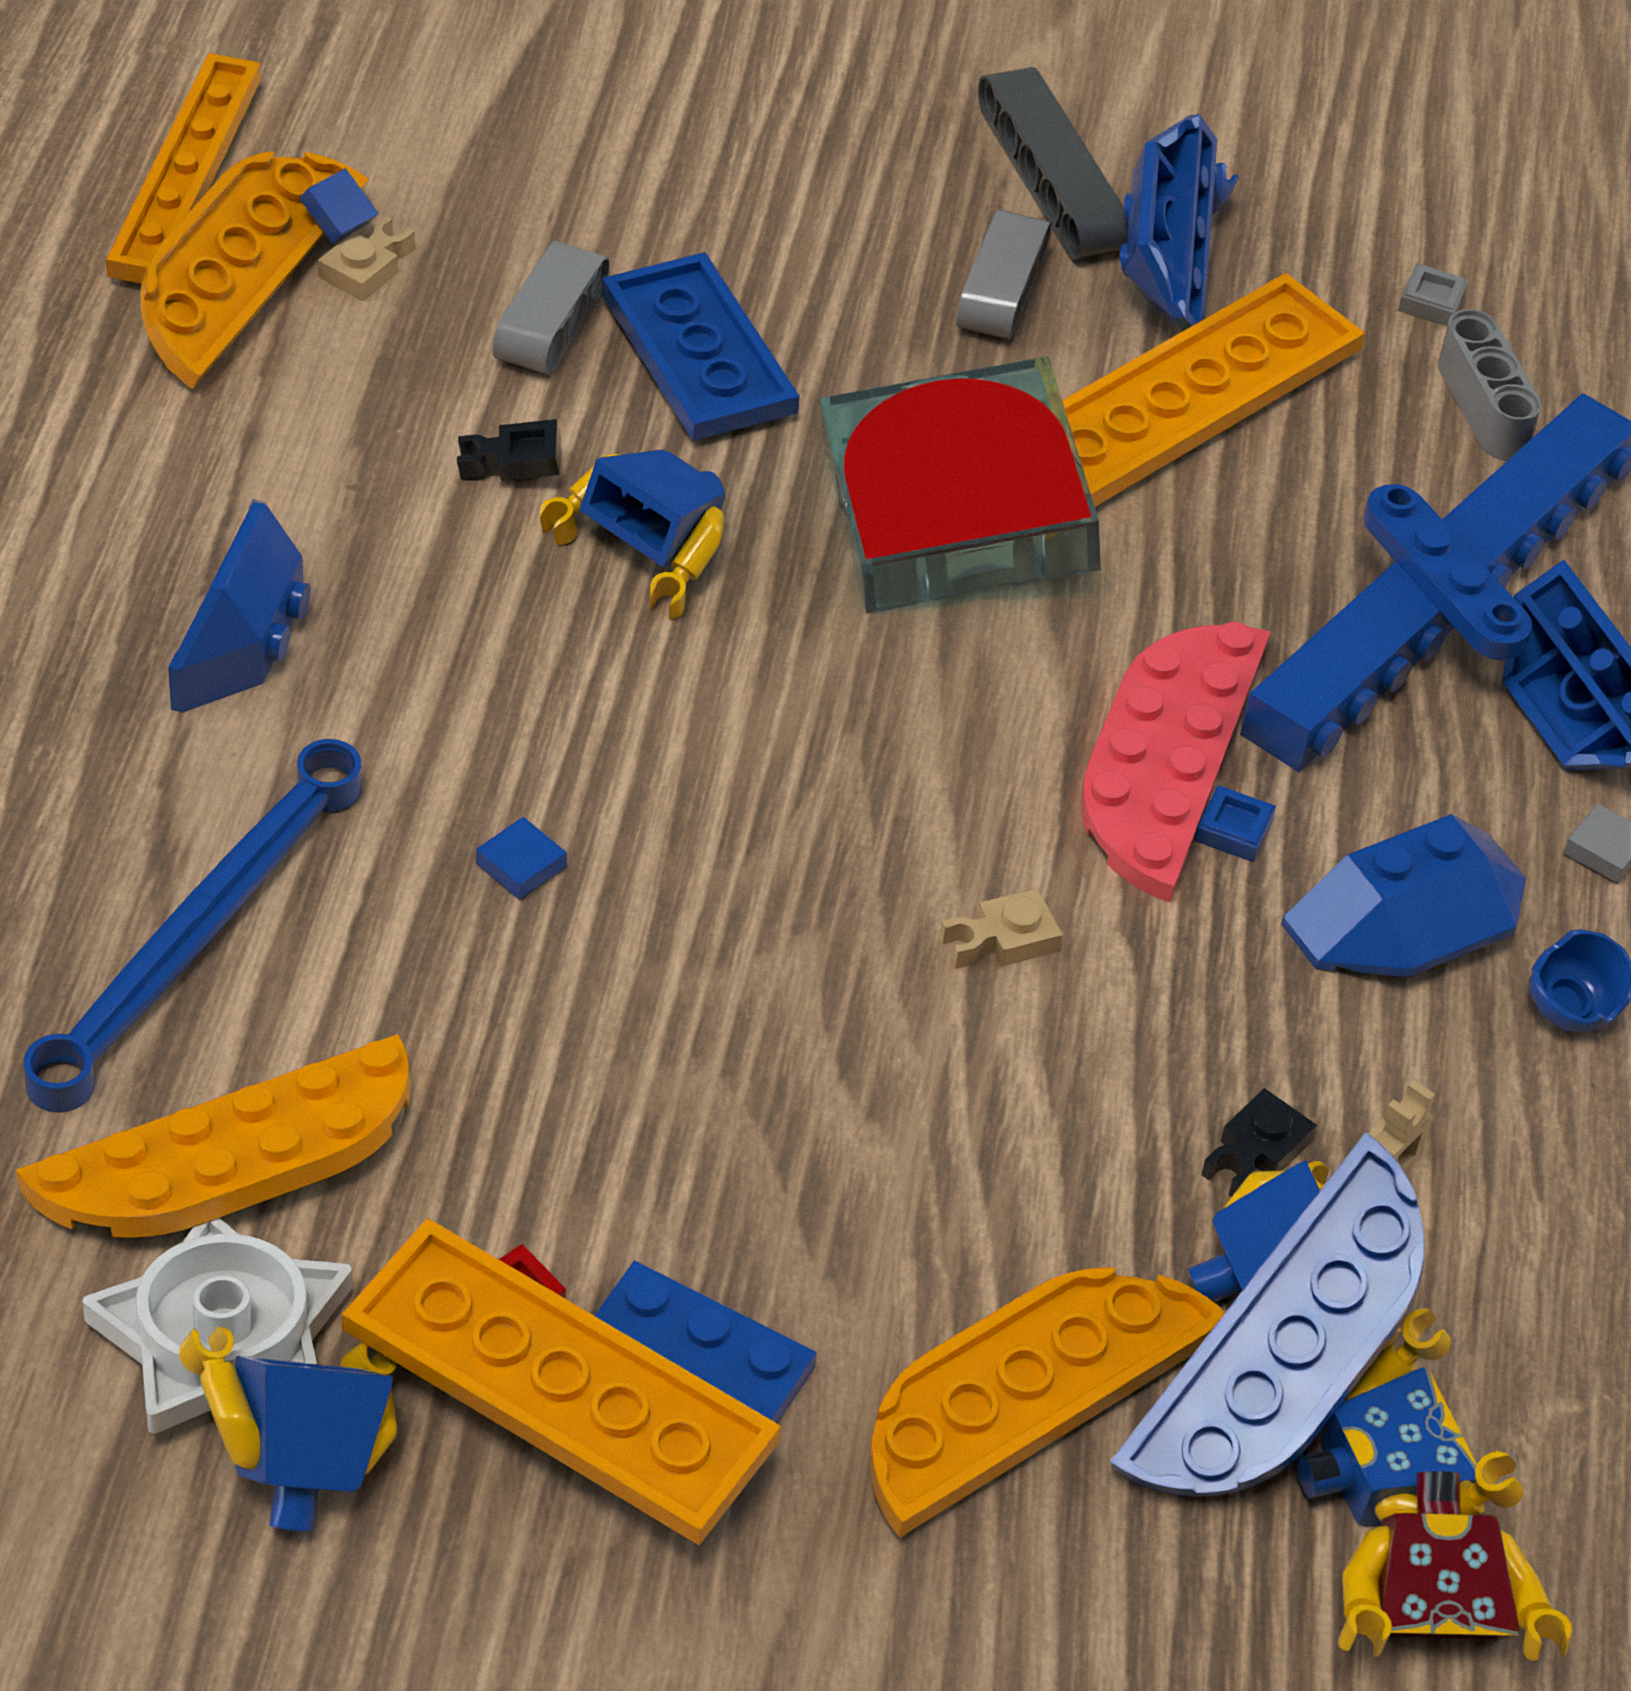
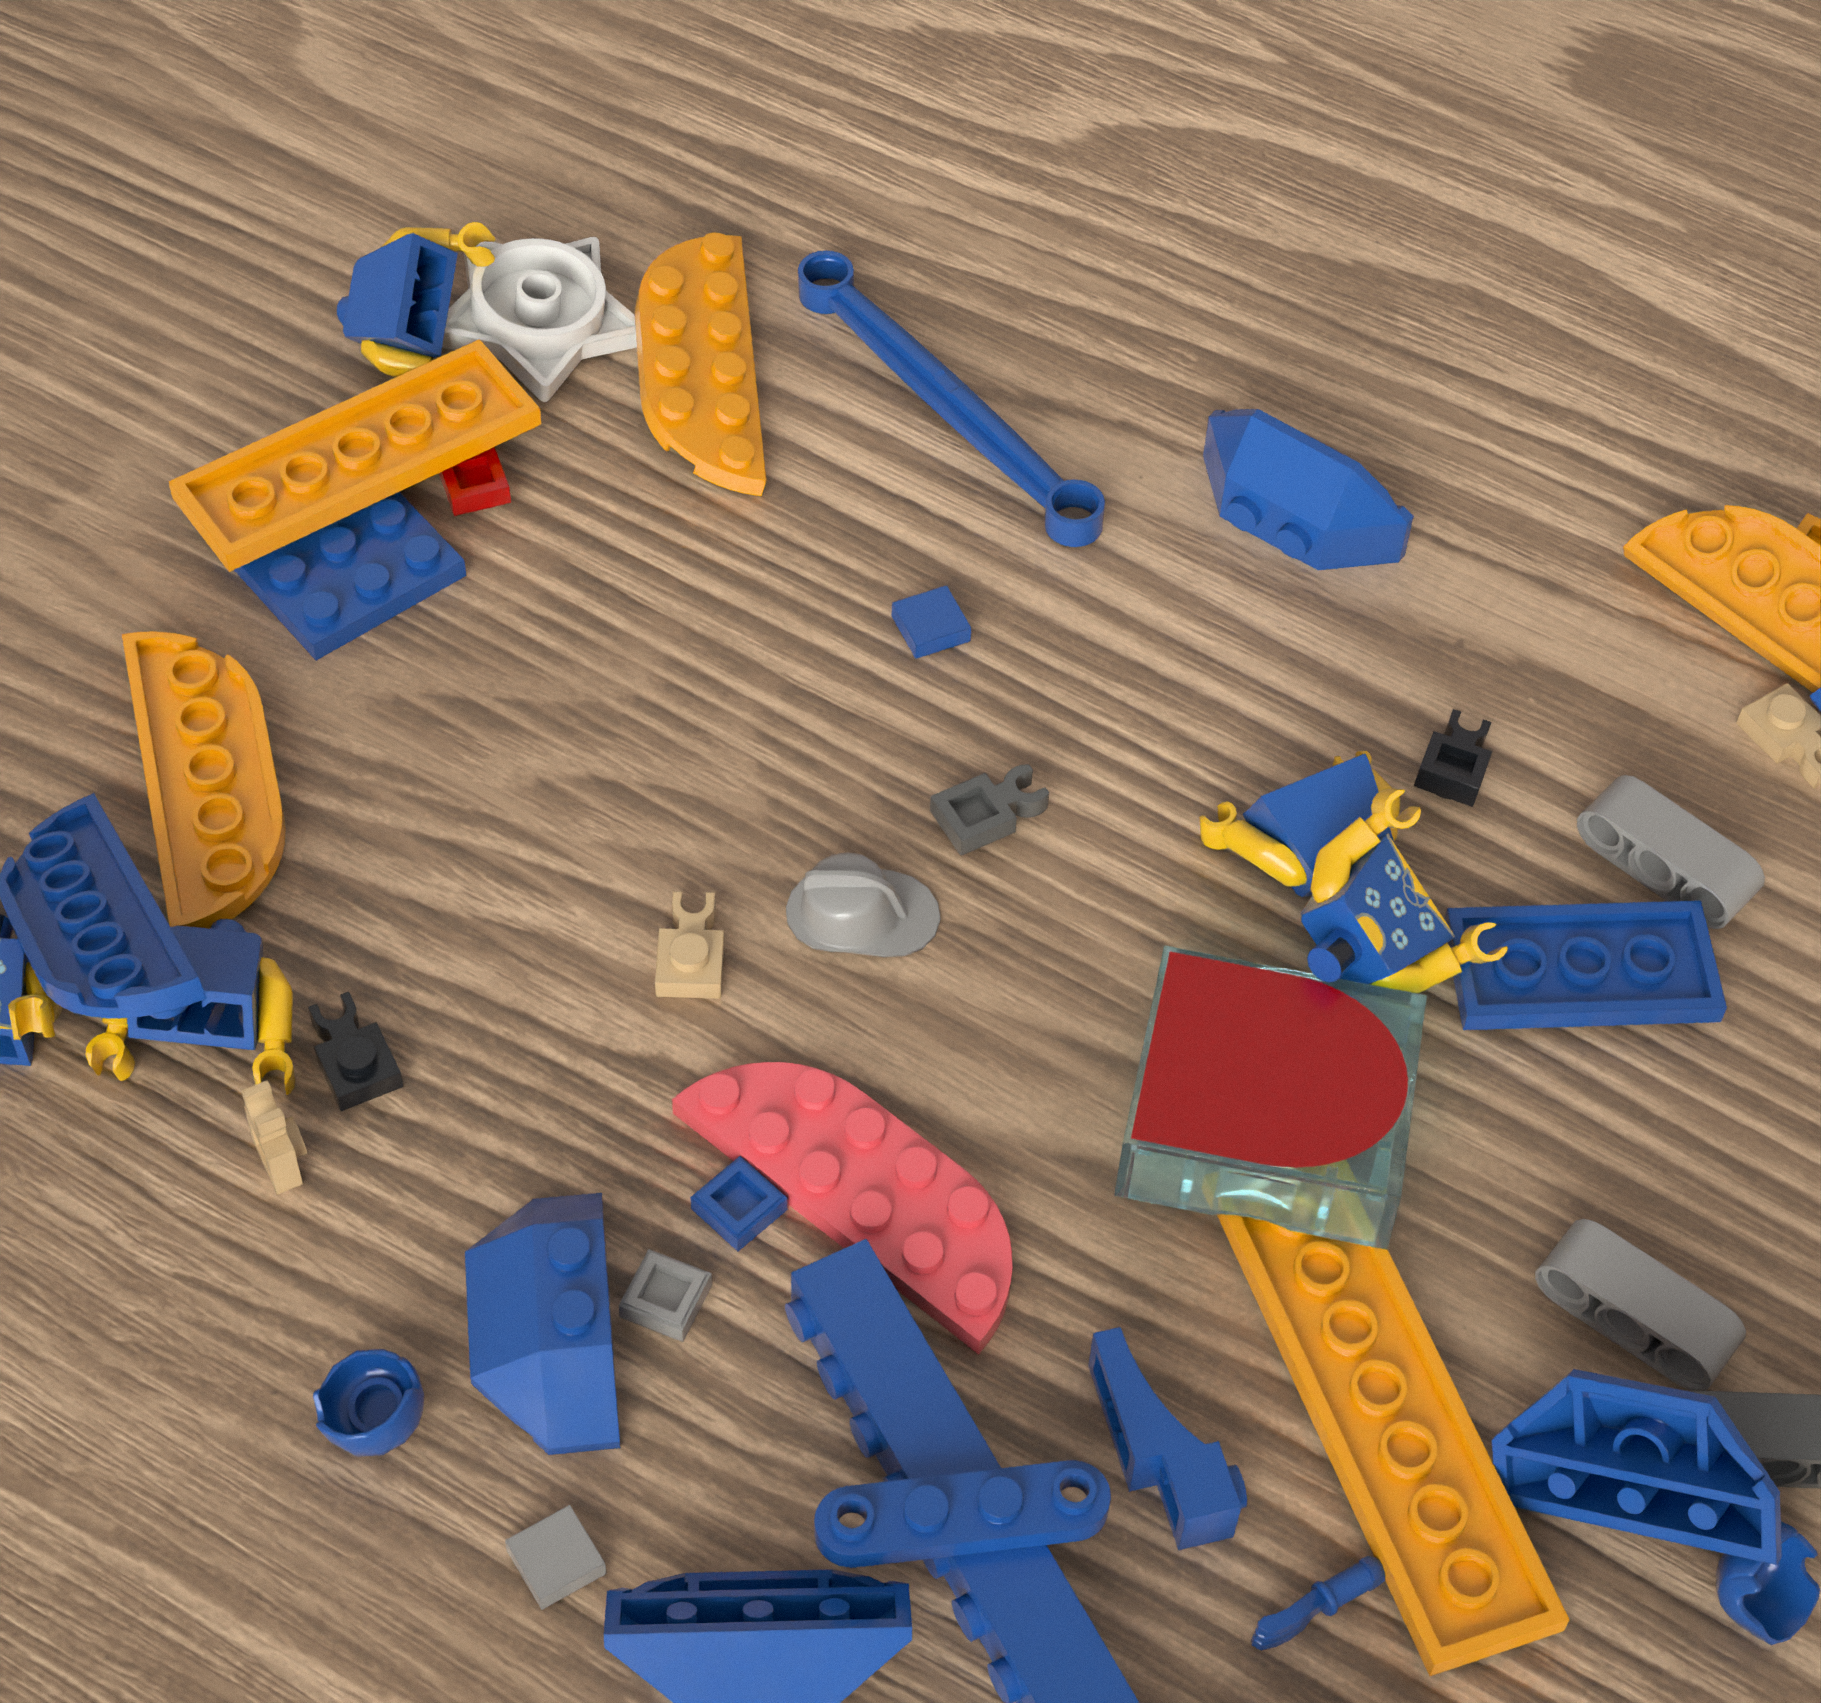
camera: 115 degrees right, 5 degrees up
(740, 757) = (985, 812): none -> dark grey plate
(753, 435) = (1374, 914): none -> torso
(890, 827) = (862, 909): none -> light grey piece
(1312, 484) = (1155, 1449): none -> blue slope
(1341, 835) = (665, 1295): none -> light grey tile
(1366, 418) = (1324, 1597): none -> blue piece

